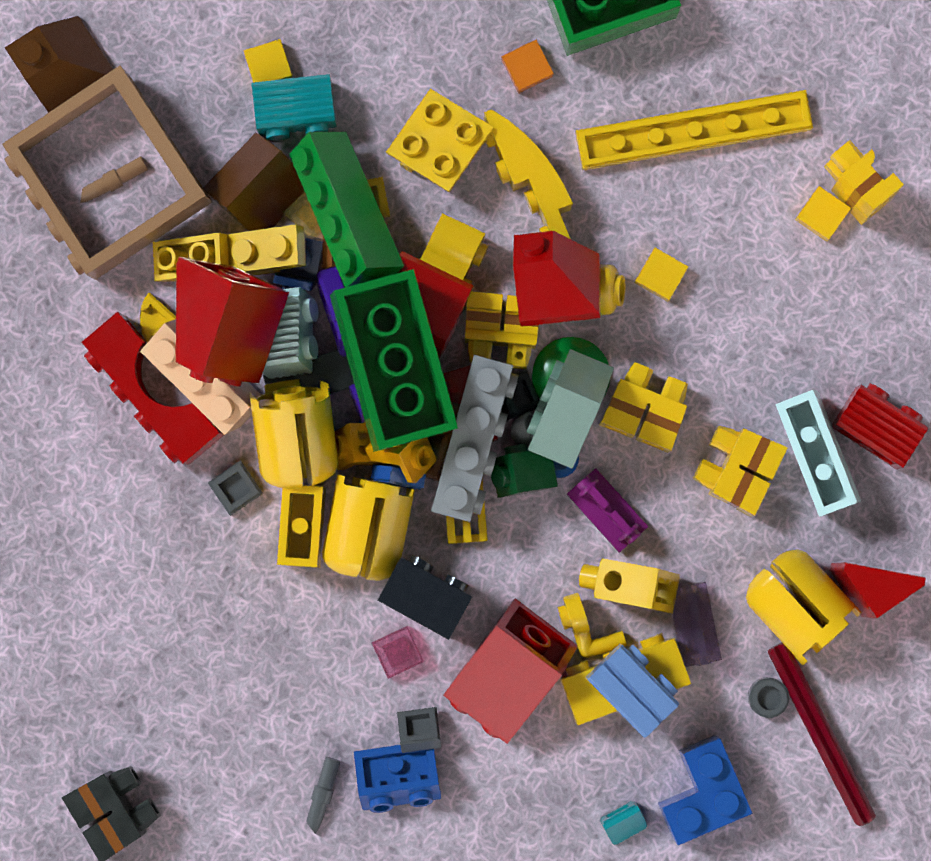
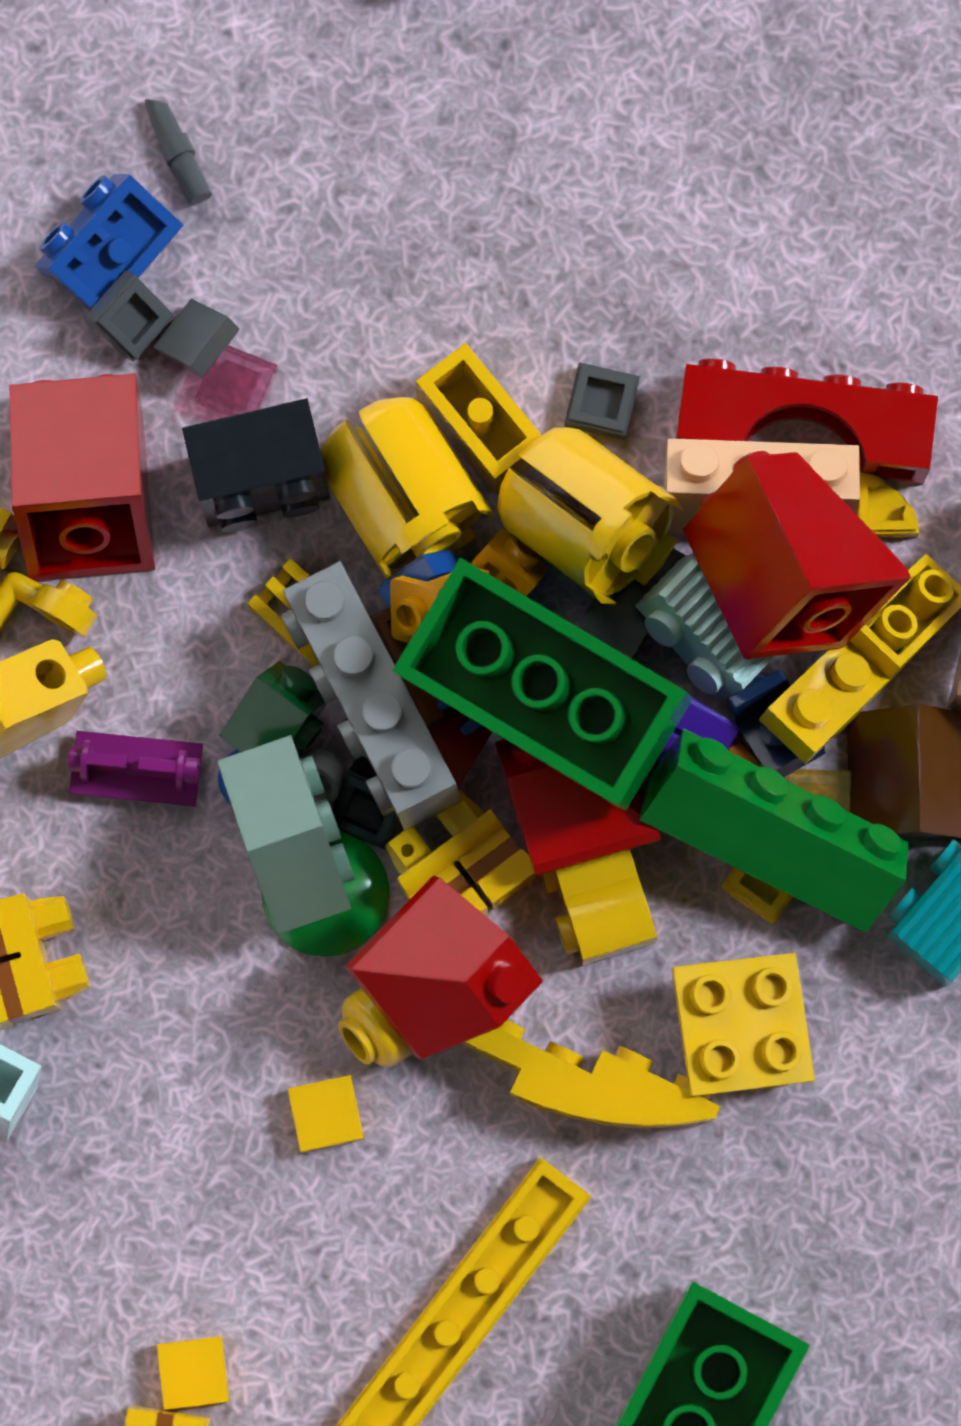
camera: 140 degrees right, 5 degrees down
(397, 689) = (196, 338): none -> dark grey tile
(527, 66) = (724, 1224): orange tile -> none
(663, 413) = (224, 923): yellow hips -> none

